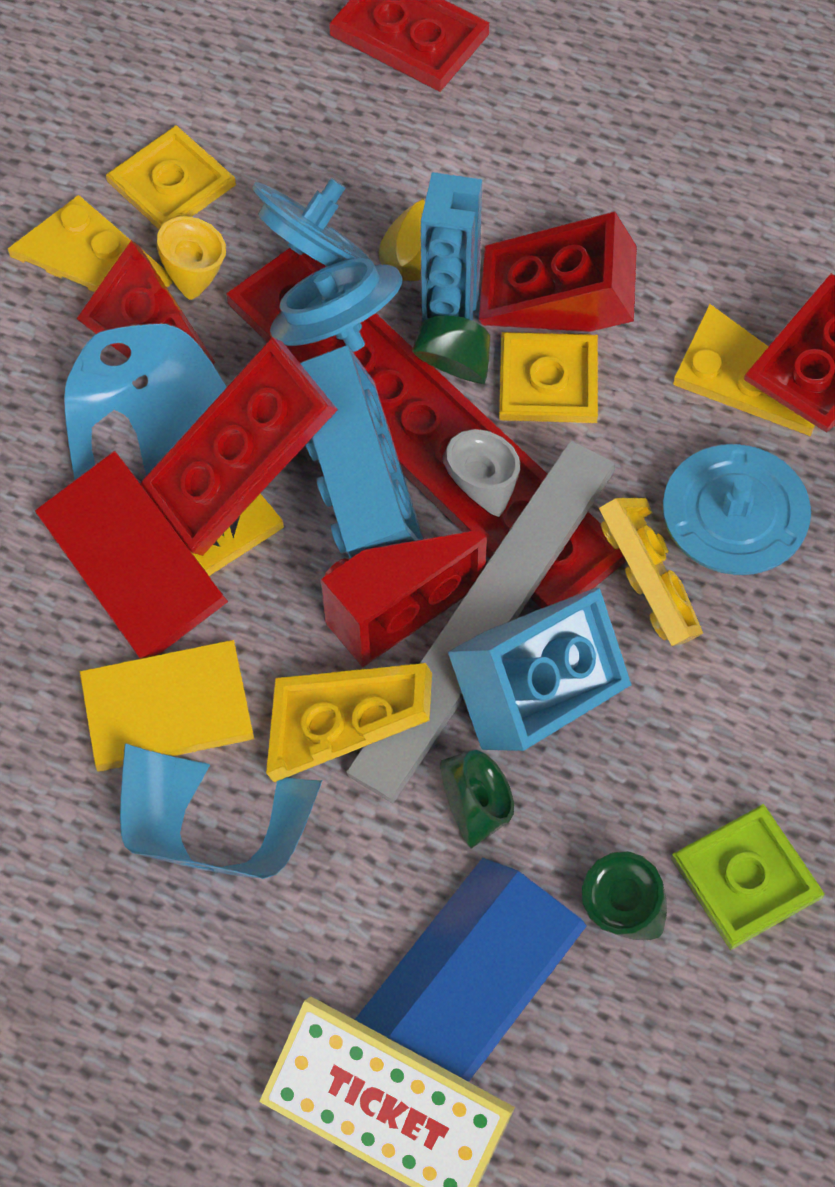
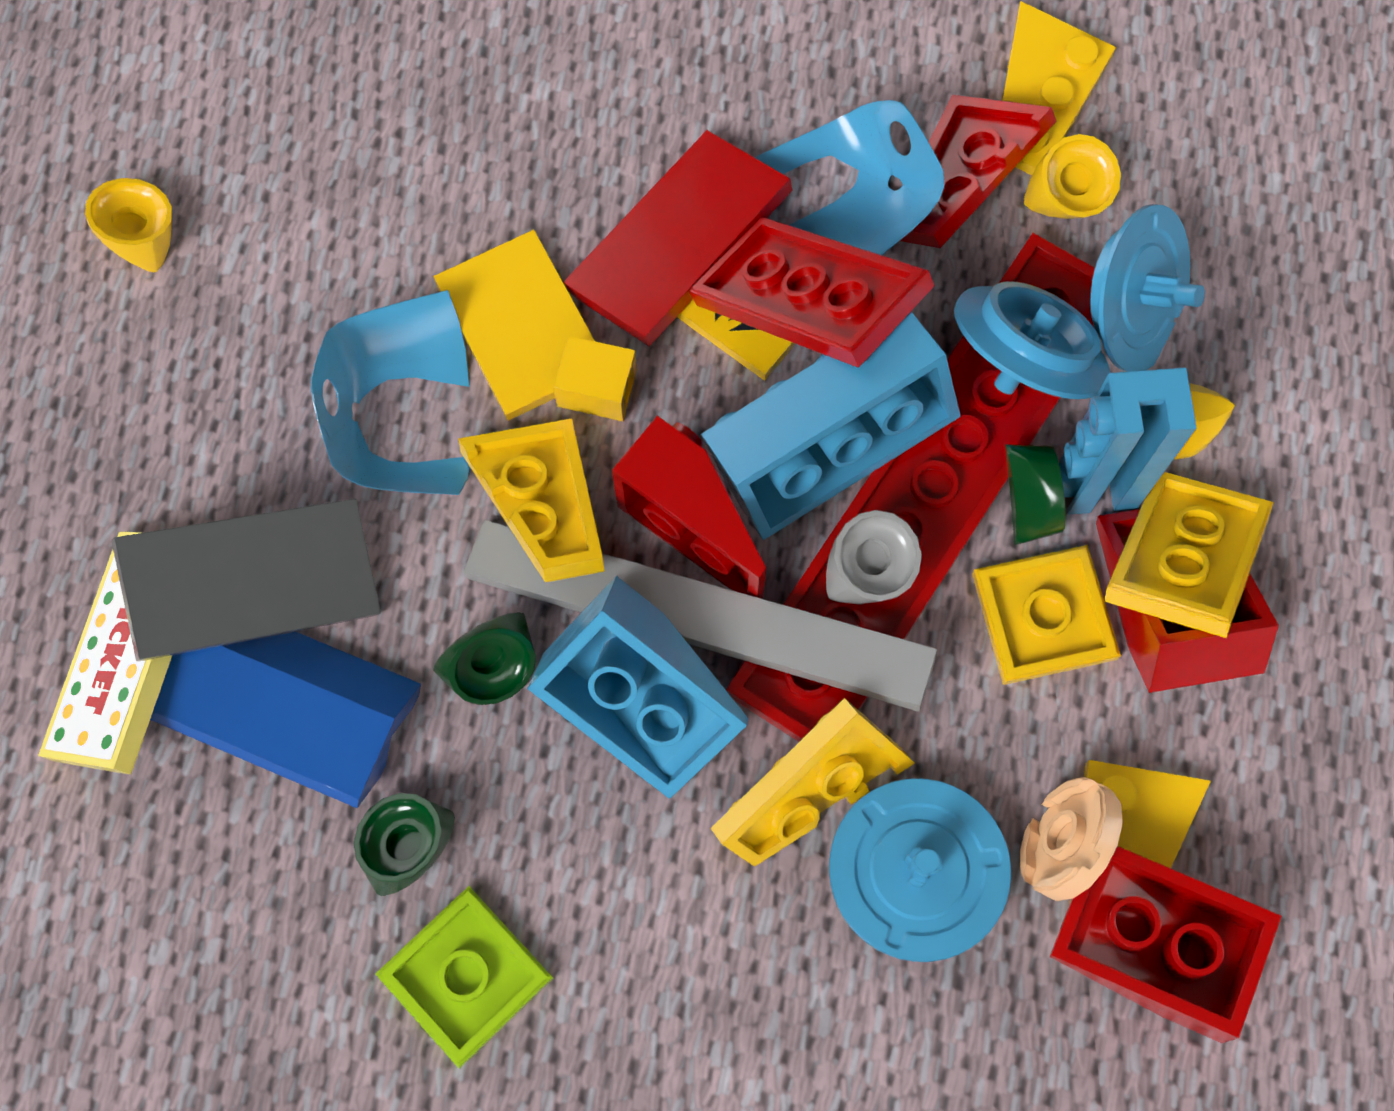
camera: 75 degrees right, 10 degrees up
(170, 178) = (1176, 135): yellow tile -> none
(247, 646) = (595, 378): none -> yellow panel
(356, 970) = (244, 578): none -> dark grey tile
(540, 257) = (1190, 554): none -> yellow tile
(739, 395) = (1072, 839): none -> light nougat tile

